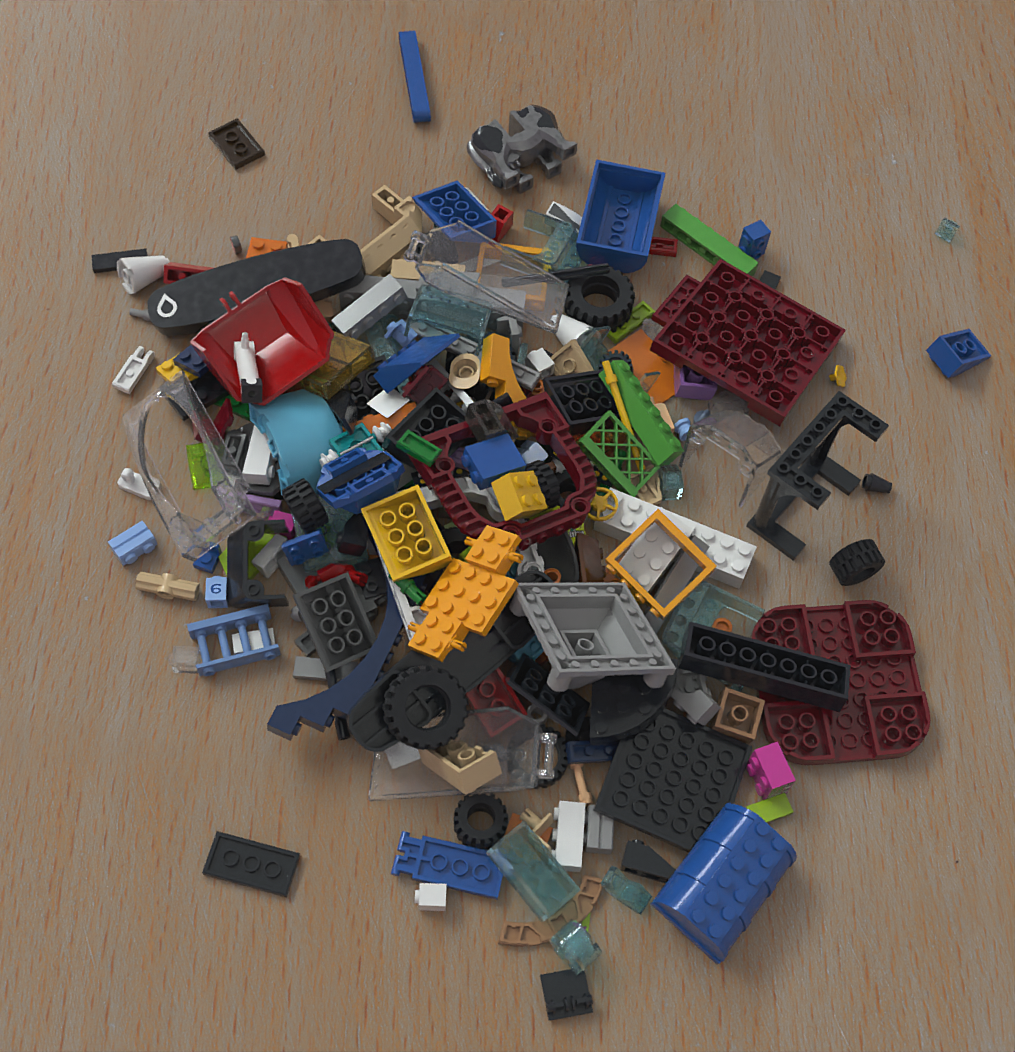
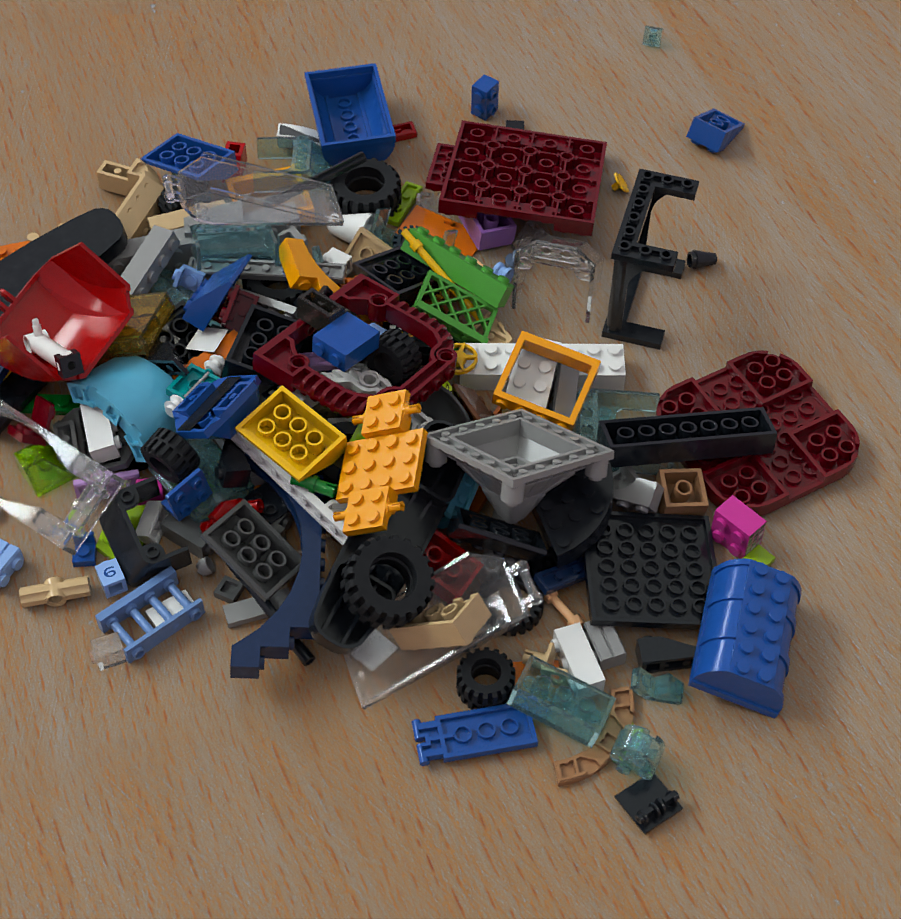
camera: 20 degrees left, 10 degrees down
(251, 864) = (271, 814): black tile -> none
(414, 76) = (86, 64): blue beam -> none
(419, 448) = (266, 354): green tile -> none
(431, 897) = (472, 768): white brick -> none
(464, 371) = (271, 285): tan piece -> none
(519, 495) = (385, 361): yellow brick -> none
(530, 139) = (224, 81): flat silver animal -> none
(671, 482) = (514, 321): clear light blue slope -> none
(705, 240) = (436, 112): bright green brick -> none
(857, 562) = (720, 324): black tyre -> none

